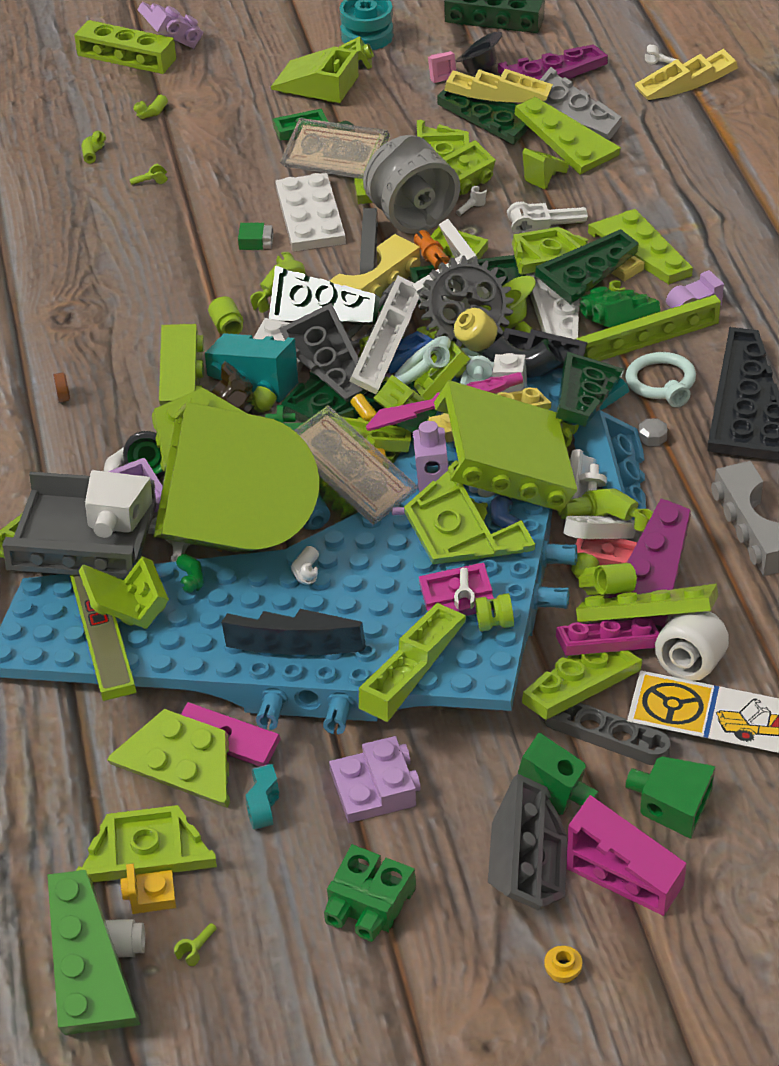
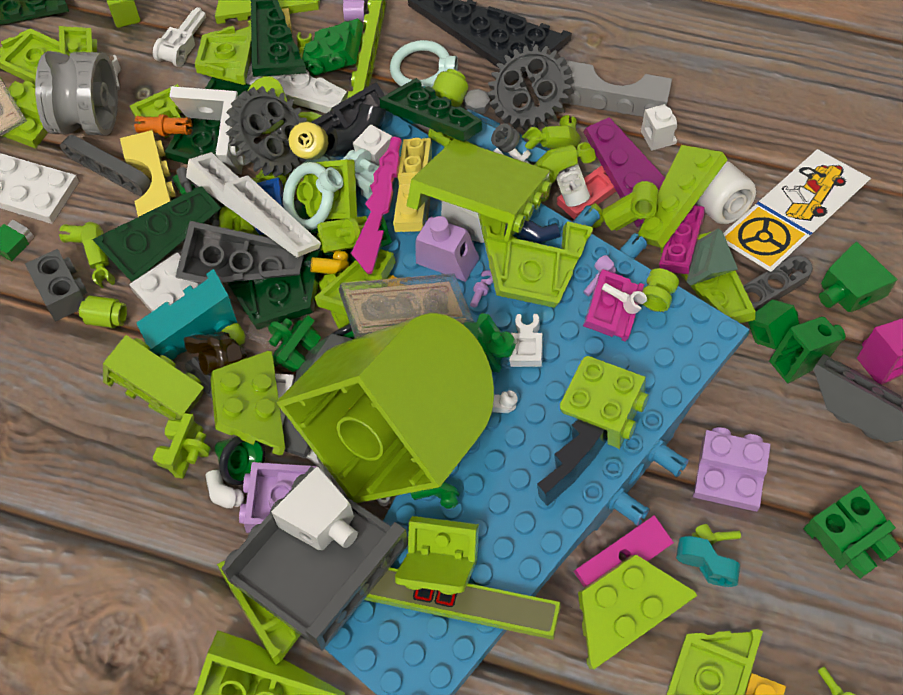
camera: 60 degrees left, 15 degrees up
(61, 387) = (82, 490): dark orange tile -> none
(133, 419) = (185, 448): none -> lime hips
(231, 277) = (56, 284): none -> dark grey brick
(289, 789) = (704, 531): none -> lime hand
(343, 624) = (606, 398): none -> lime bracket
(349, 528) = (494, 343): none -> green hips
(374, 560) = (529, 344): none -> white plate
(417, 651) = (669, 367): lime slope -> none
(495, 573) = (602, 263): none -> lavender hand
(567, 736) = (773, 323): none -> green brick
(589, 661) = (711, 258): none -> sand green slope
(598, 451) = (511, 141): none -> dark grey bush
(641, 489) = (554, 136): none -> lime arm
(643, 403) = (451, 85): none -> lime head
(693, 452) = (553, 77): none -> dark grey gear
(737, 568) = (659, 127): none -> white brick

